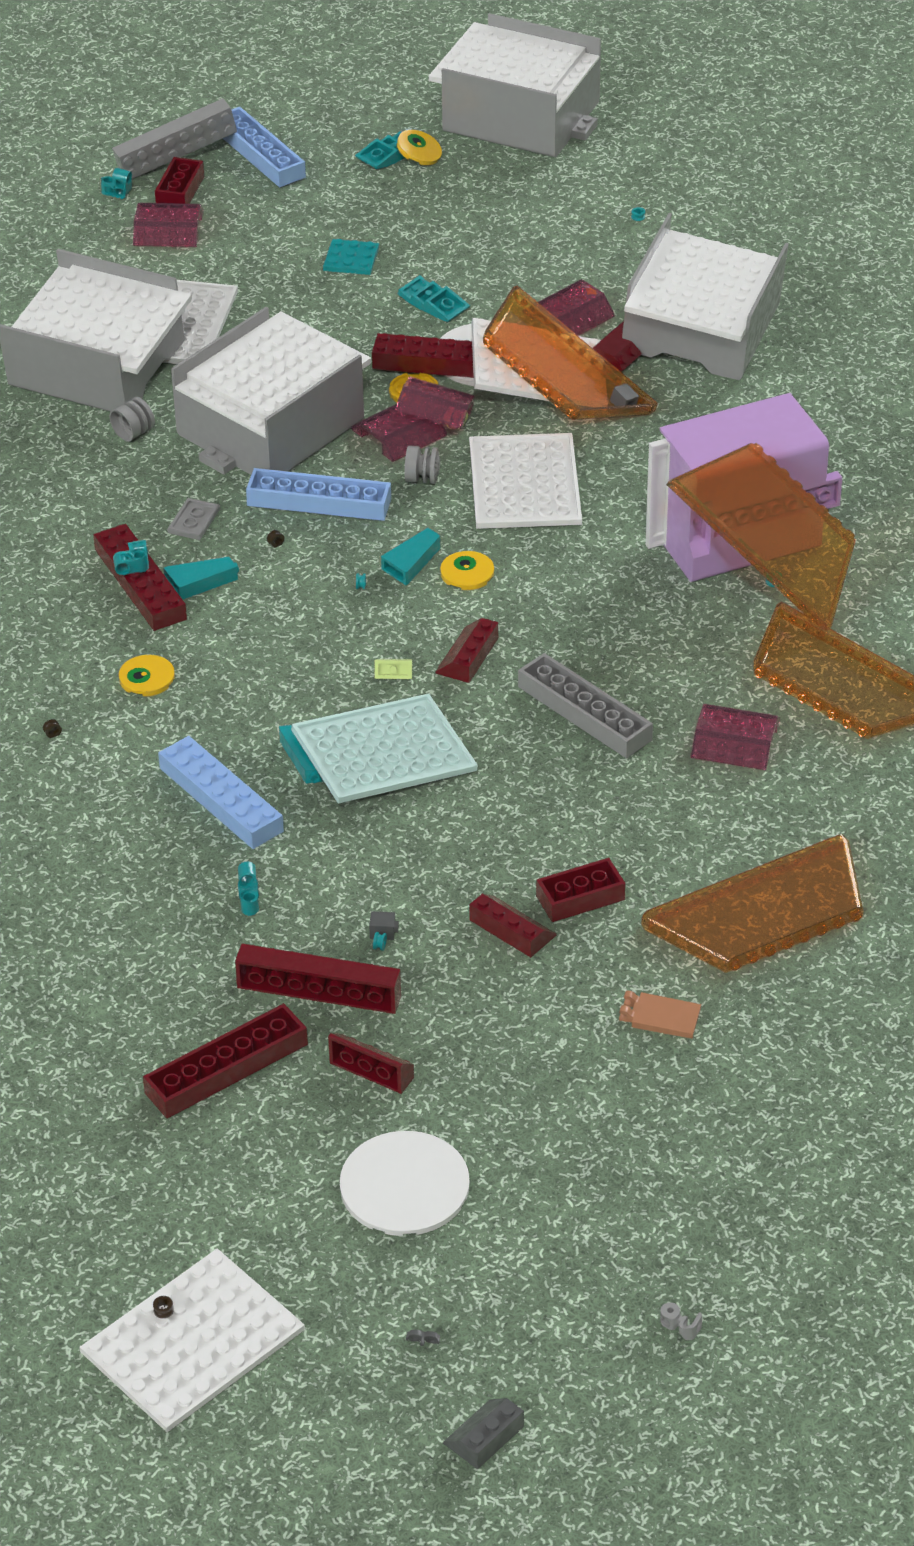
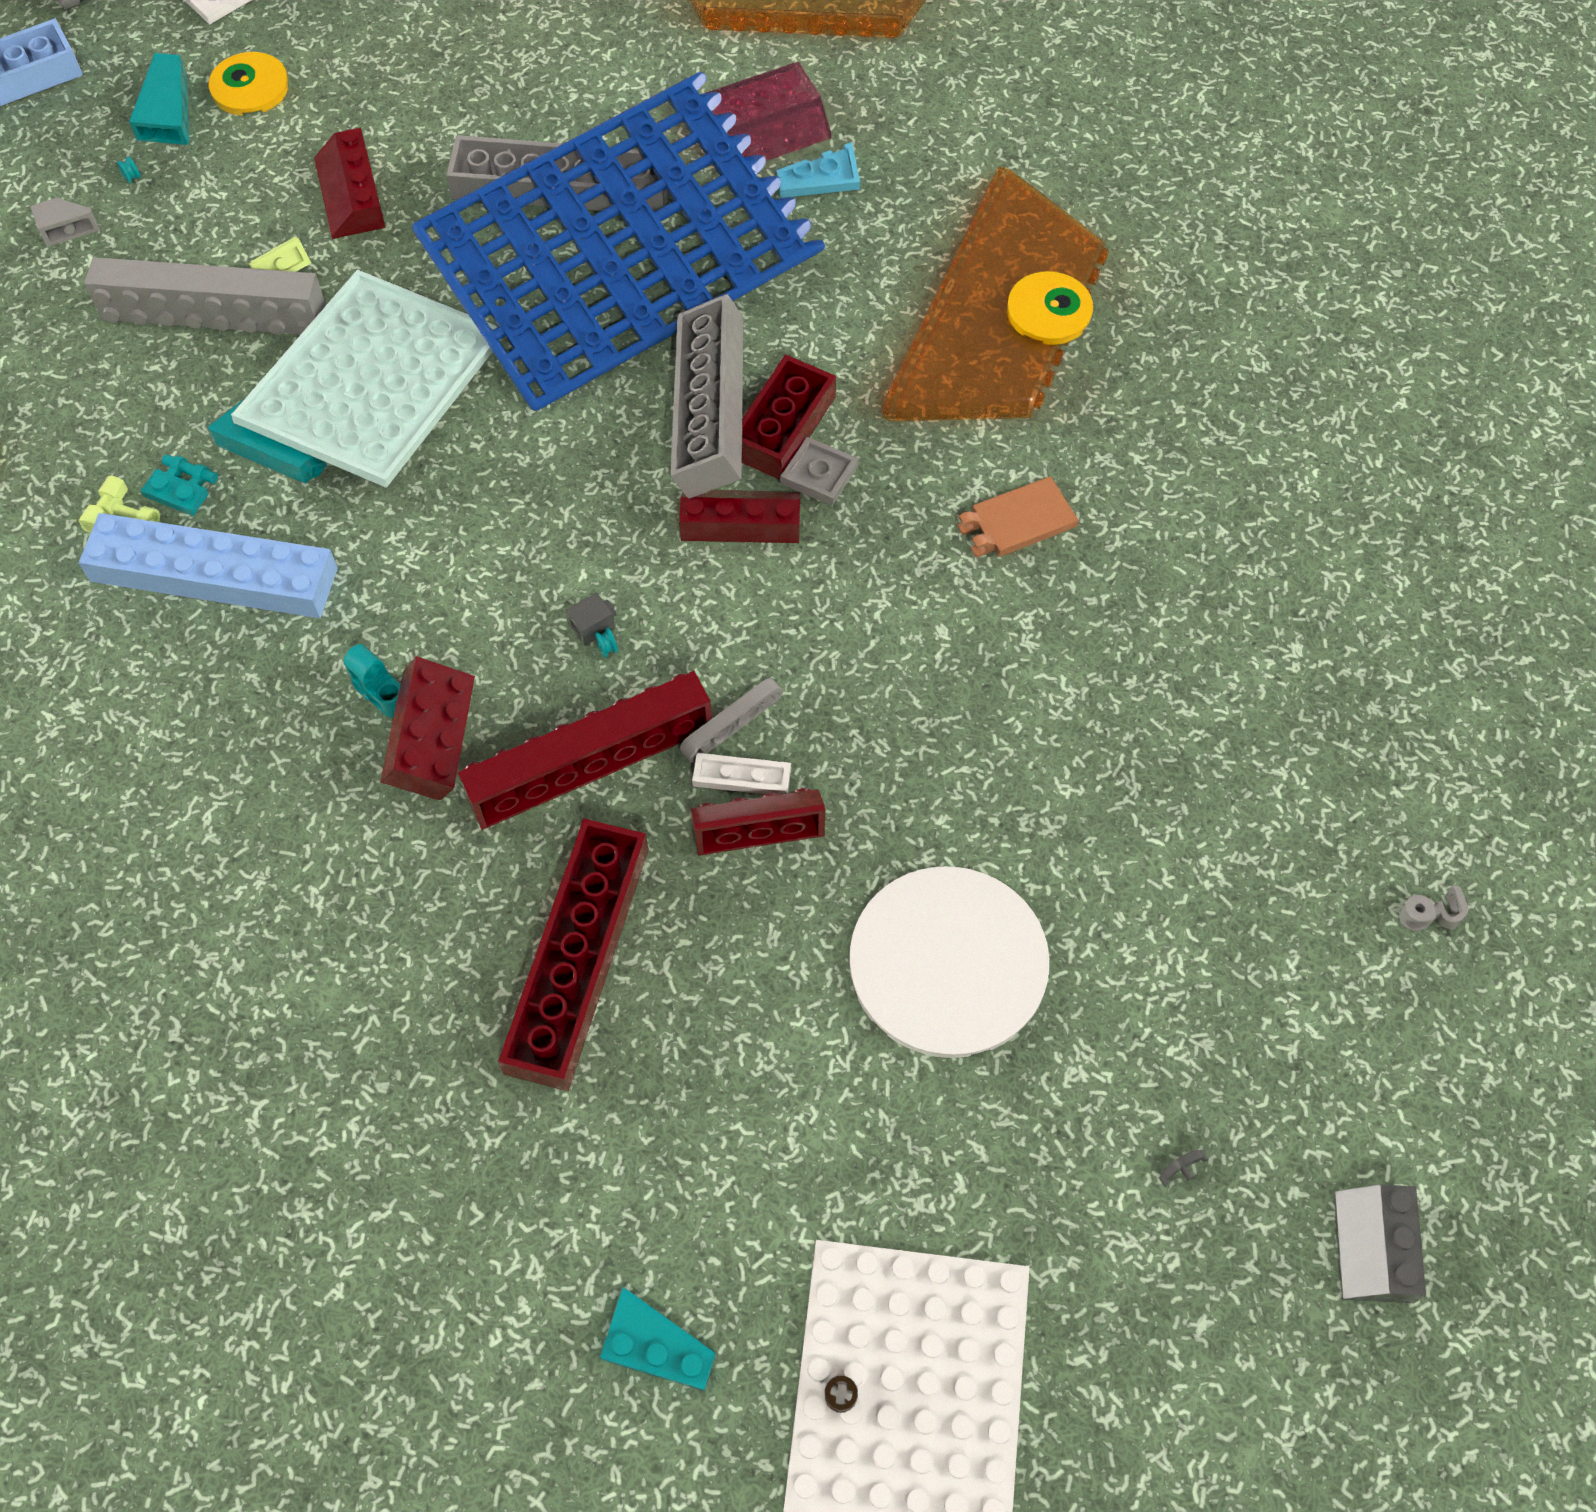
camera: 40 degrees left, 20 degrees up
(103, 1240) = (655, 1345): none -> teal wing
(206, 733) = (111, 503): none -> yellowish green bar
(238, 750) = (175, 491): none -> teal plate
(251, 921) = (428, 729): none -> dark red brick
(302, 588) = (63, 220): none -> light grey slope
(336, 662) = (204, 295): none -> light grey brick
(386, 1038) = (741, 774): none -> white plate
(406, 1012) = (731, 719): none -> light grey beam
(543, 852) = (708, 397): none -> light grey brick
(558, 782) = (645, 225): none -> blue bar
(575, 928) = (819, 471): none -> light grey plate
(737, 786) = (824, 175): none -> medium azure wing
(785, 918) = (1050, 307): none -> yellow tile

